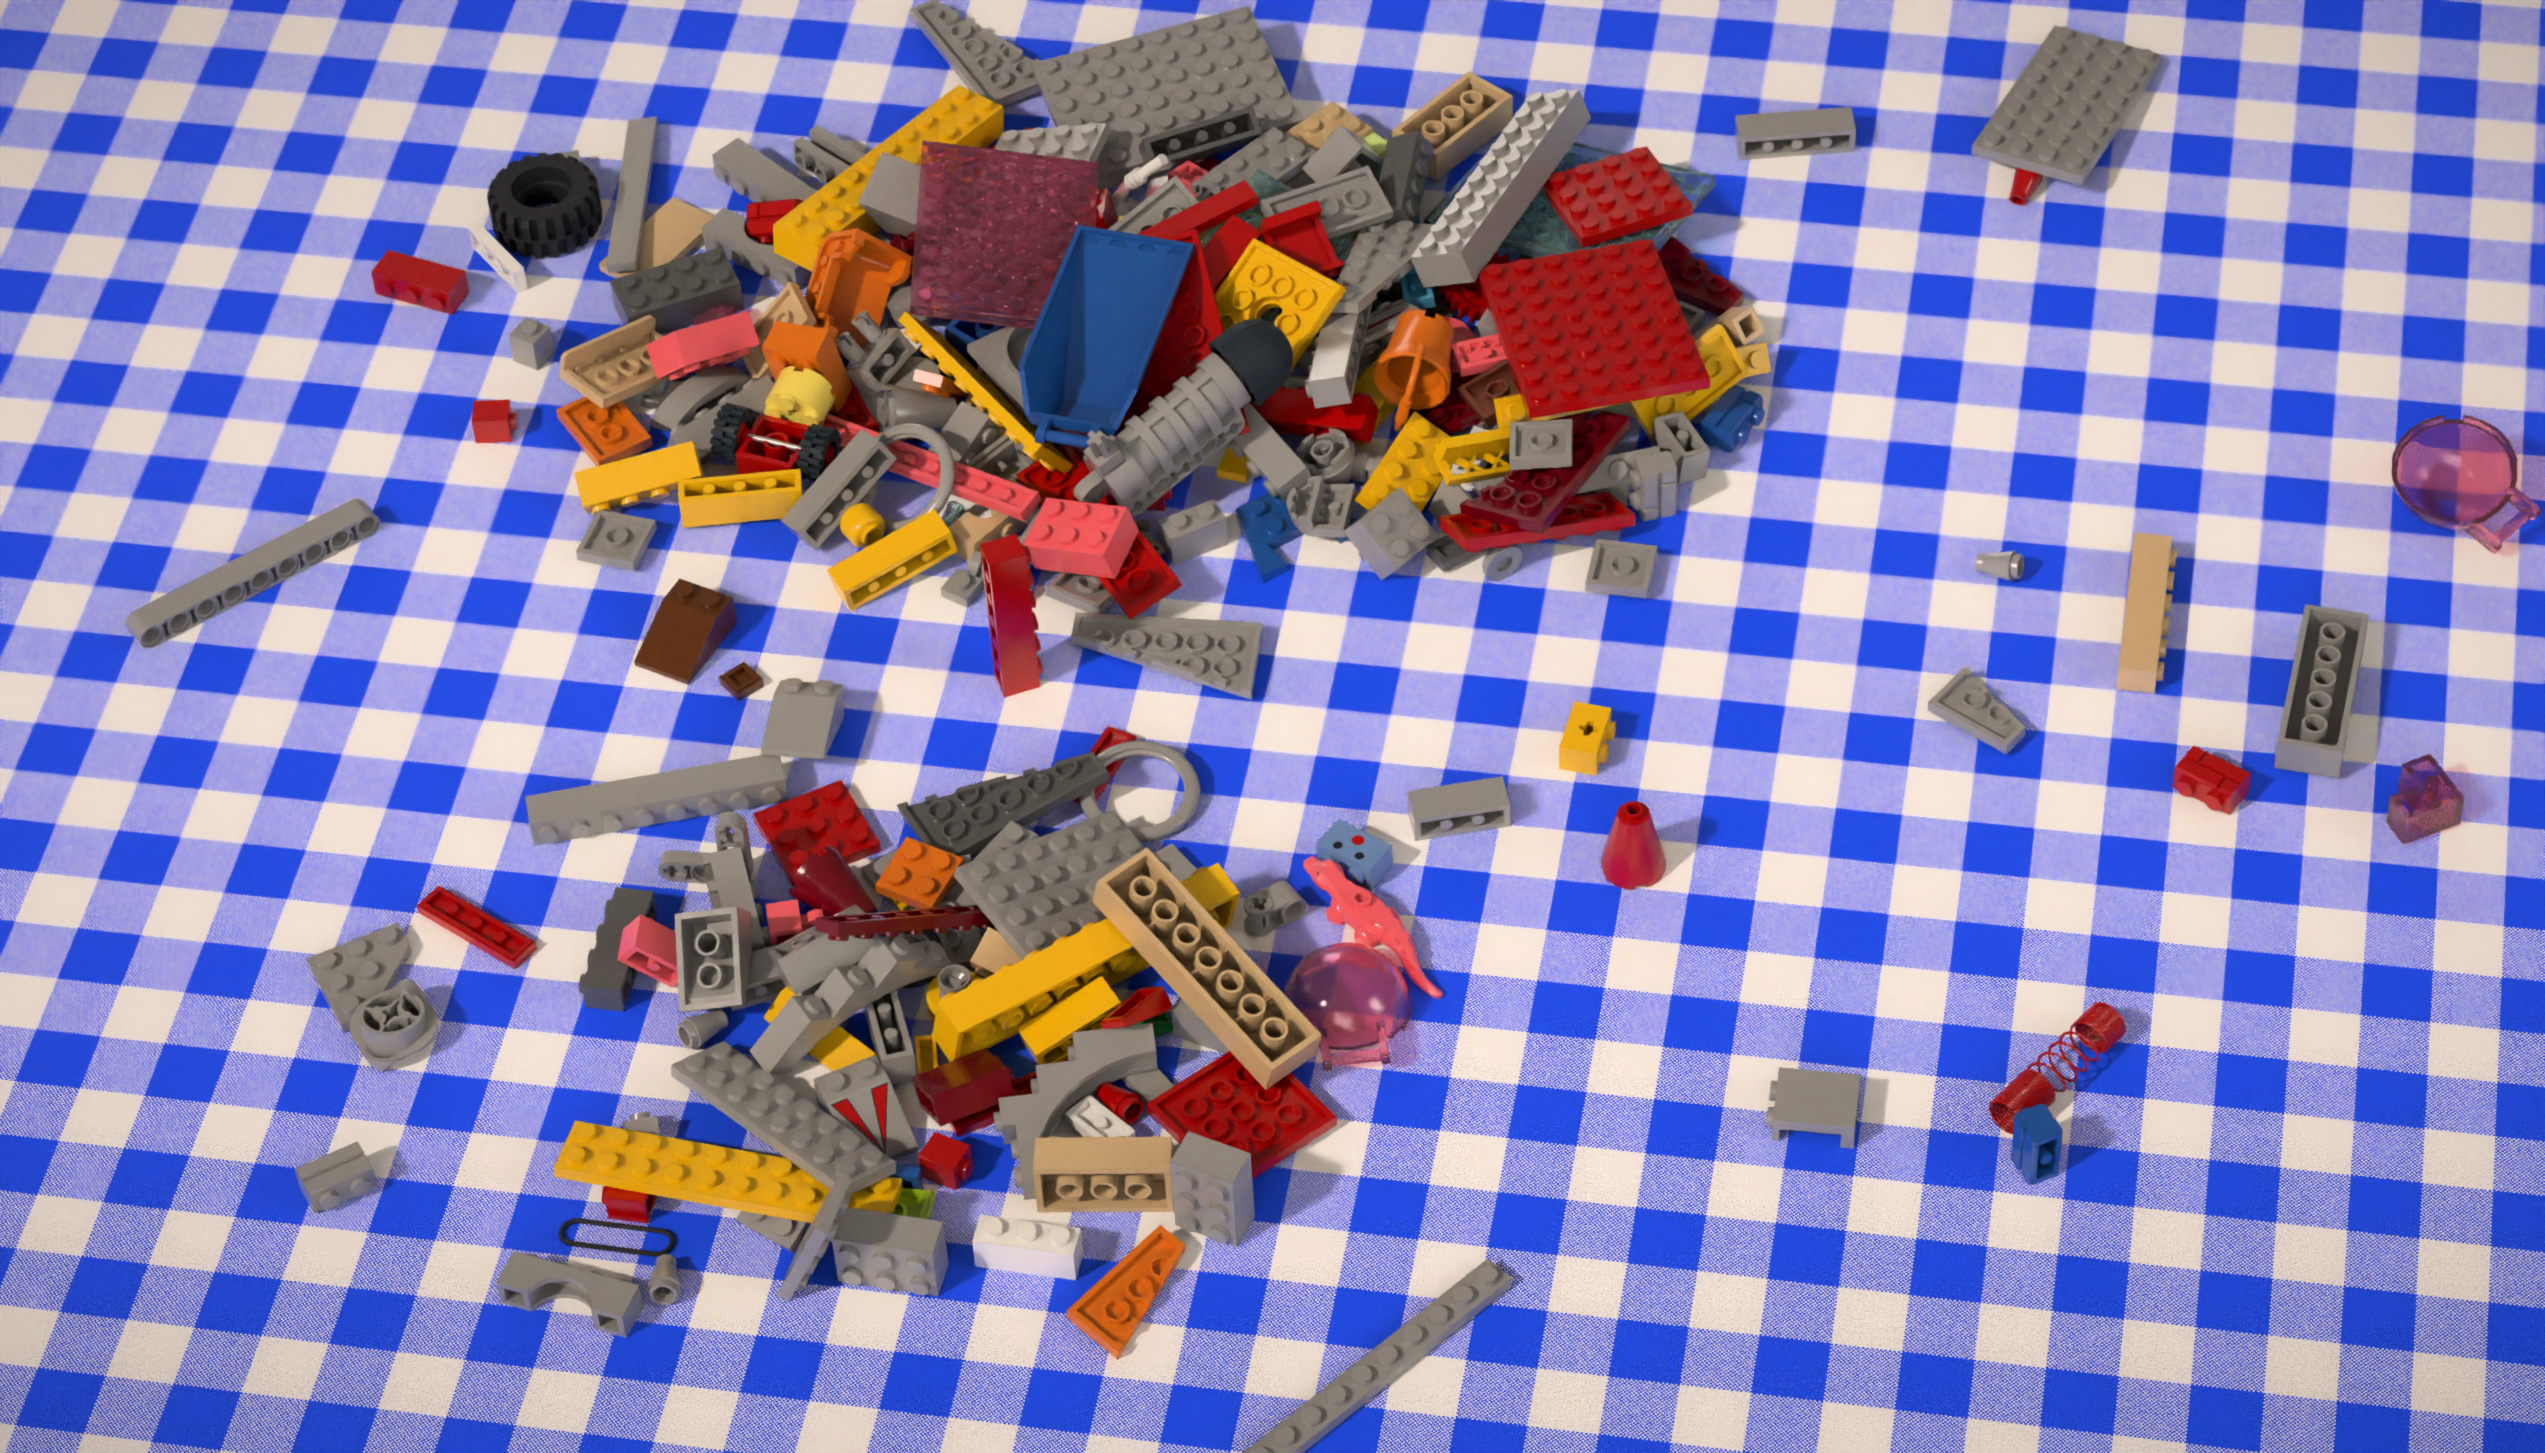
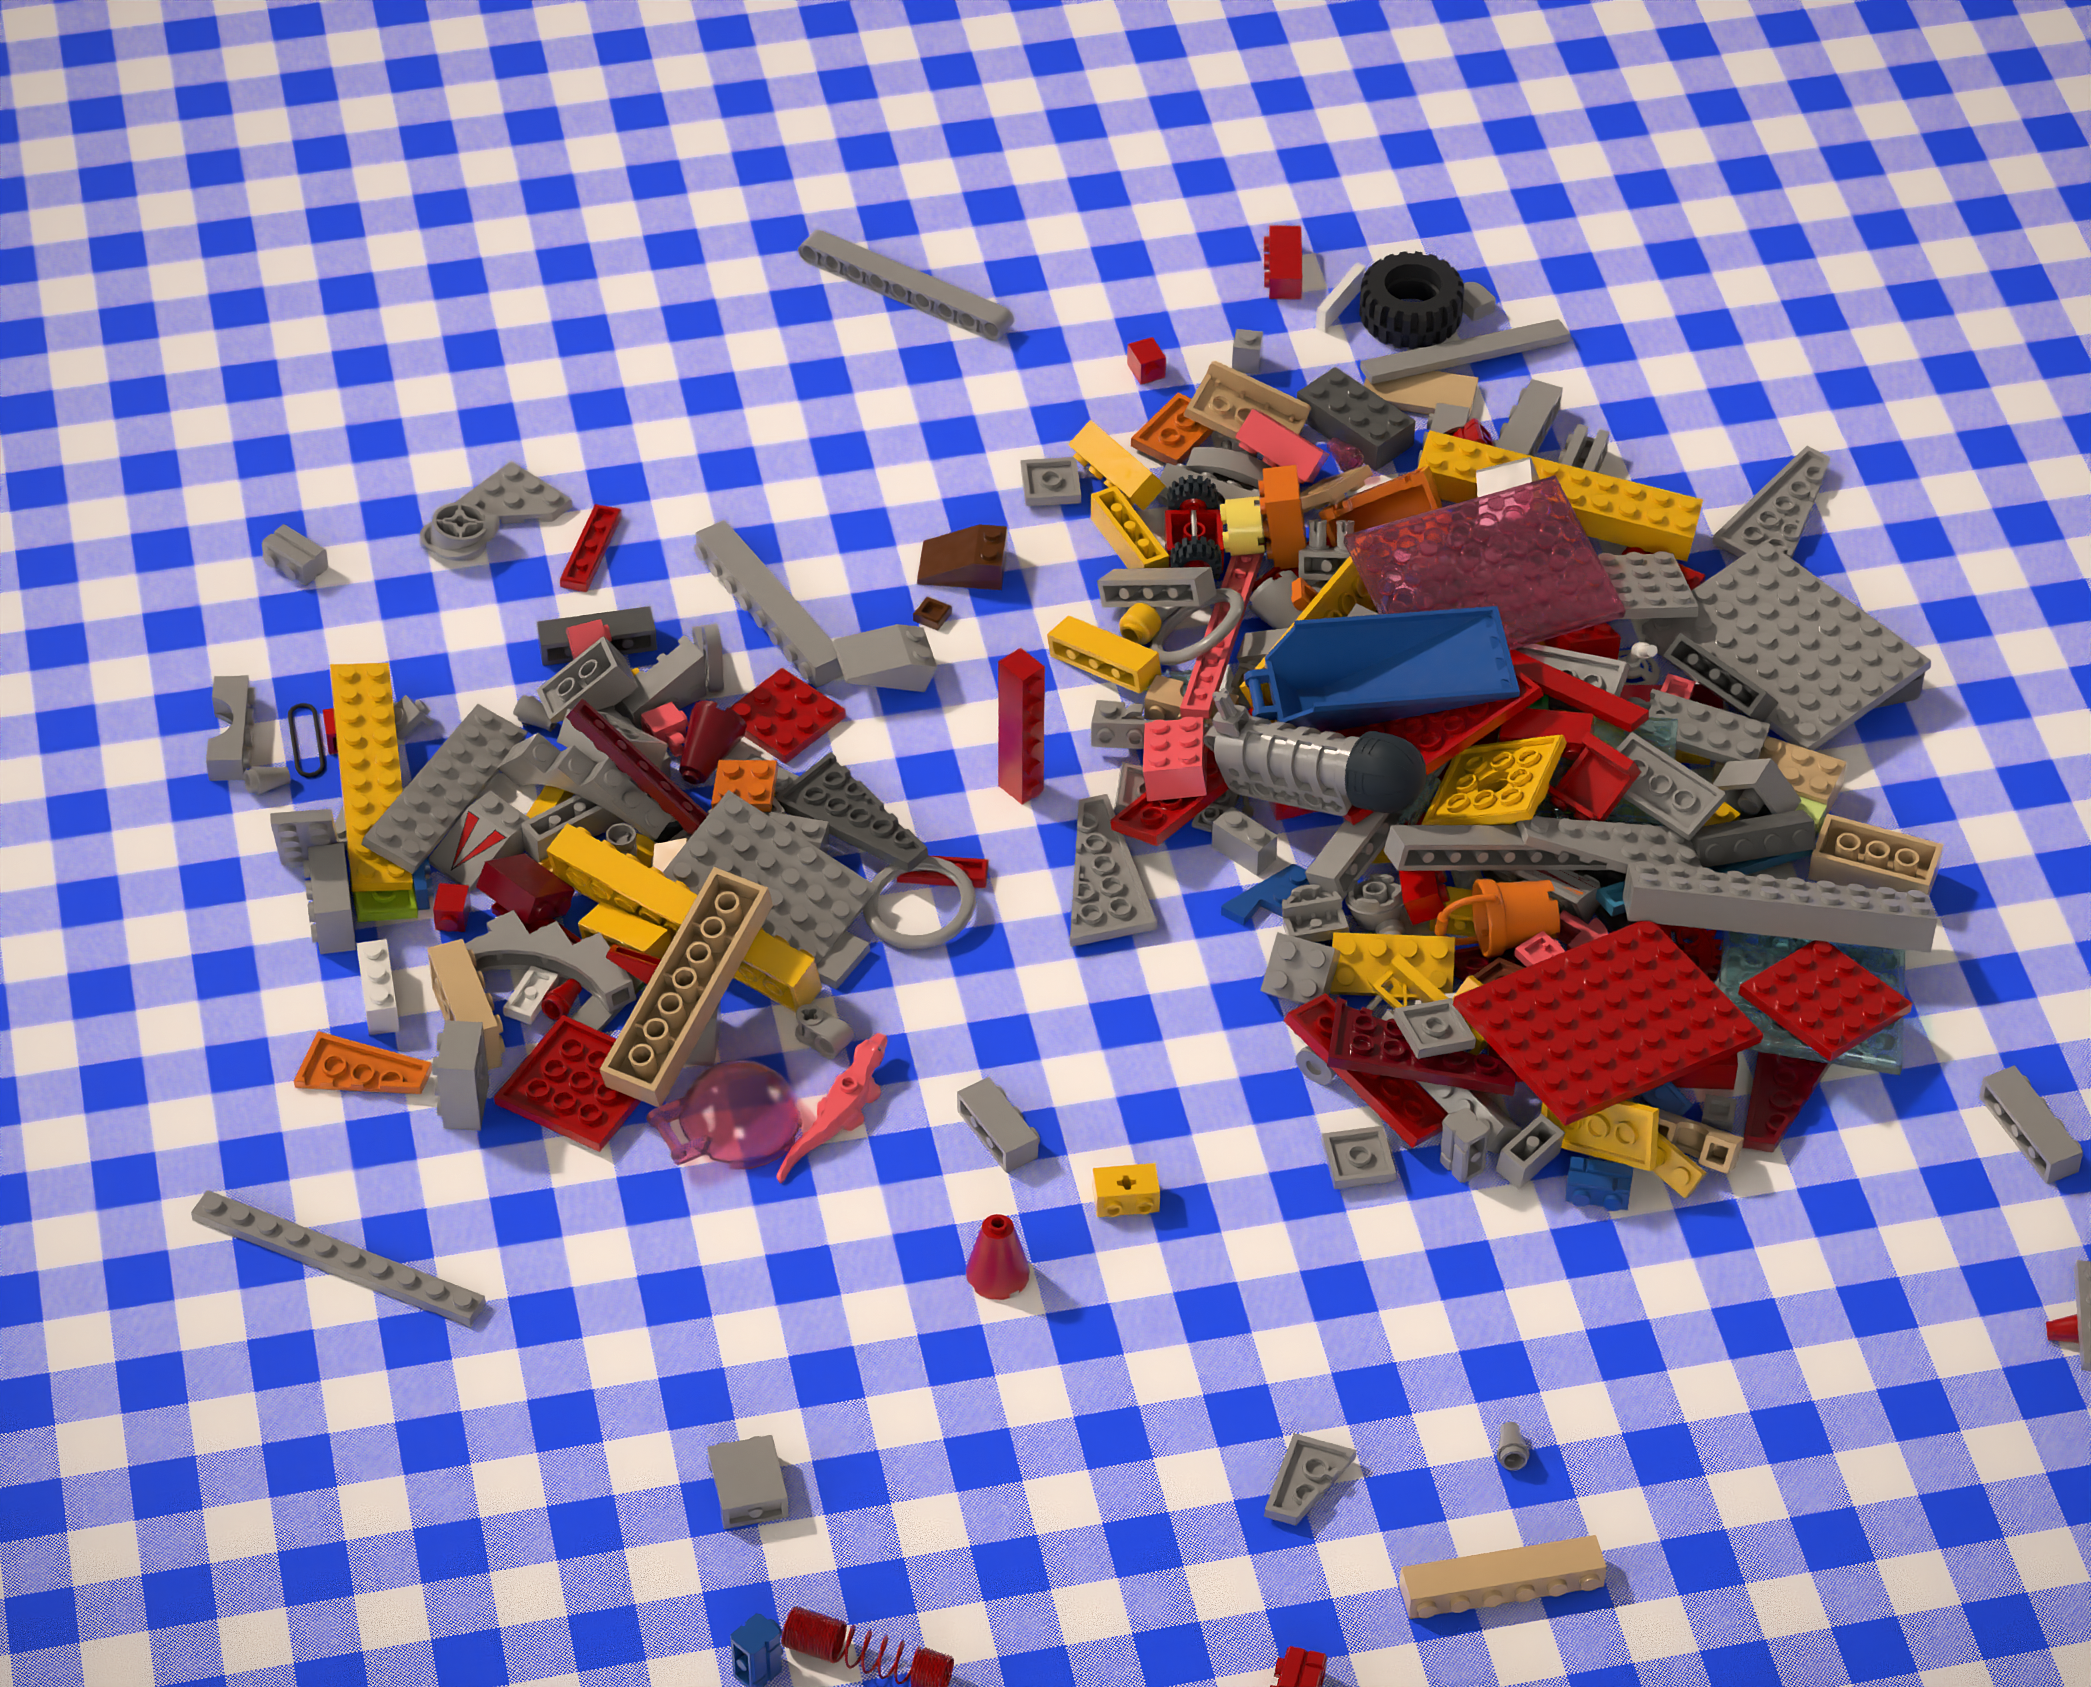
camera: 65 degrees right, 0 degrees up
(1359, 854) = (907, 1068): medium blue brick -> none

